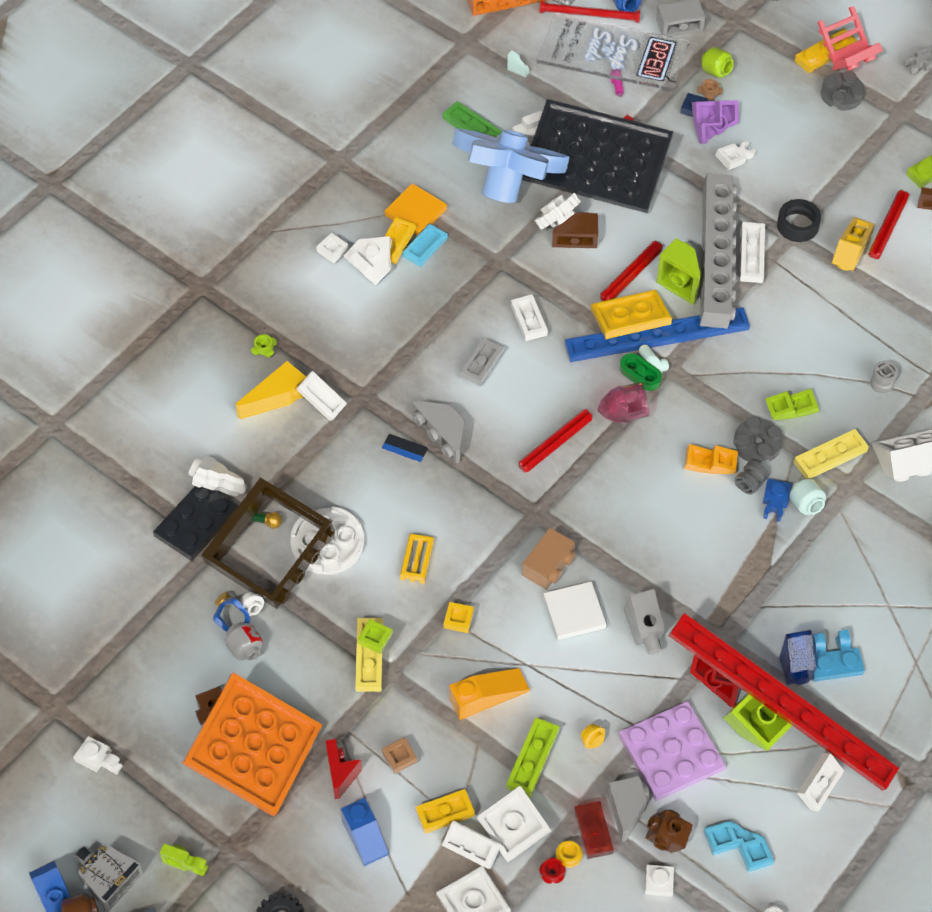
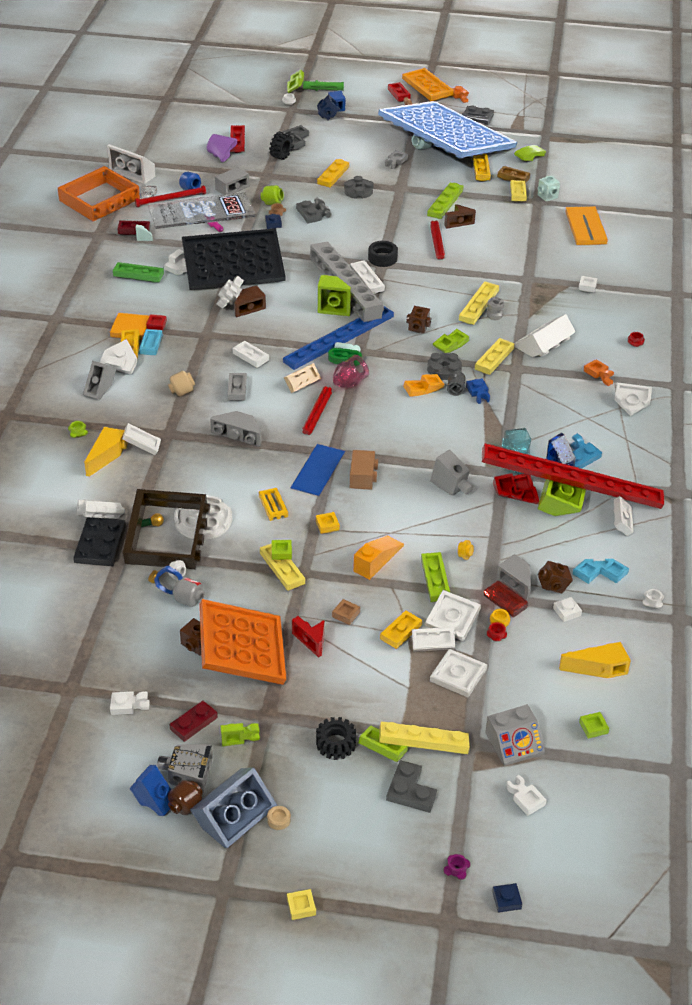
camera: 30 degrees left, 15 degrees down
(150, 815) = (193, 721): none -> dark red plate
(327, 282) = (99, 380): none -> light grey slope
(332, 248) = (86, 360): white plate -> none
(364, 831) = (355, 662): slope -> none
(405, 448) = (218, 450): black sticker -> none
(418, 329) = (181, 383): none -> tan head
(447, 218) = (156, 322): none -> red plate
(502, 530) = (317, 469): none -> blue sticker
(503, 44) = (129, 227): none -> dark red plate
(507, 160) = (180, 272): light blue plant -> none
(566, 383) = (302, 378): none -> tan plate
(574, 610) = (399, 491): white tile -> none
(631, 271) = (298, 311): red axle -> none
(631, 314) = (315, 330): yellow tile -> none
(671, 751) = (519, 536): lavender plate -> none
(714, 117) = (291, 221): medium lavender slope -> none
(734, 156) = (318, 236): white plate -> none
(751, 107) = (311, 212): none -> dark grey plate
(761, 618) = (517, 440): none -> clear light blue slope
(769, 354) = (419, 319): none -> reddish brown brick
(807, 497) = (498, 380): light aqua head -> none
(852, 244) = (425, 255): yellow slope -> none
(853, 53) = (351, 167): coral plate -> none
(866, 358) = (478, 303): none -> light yellow plate

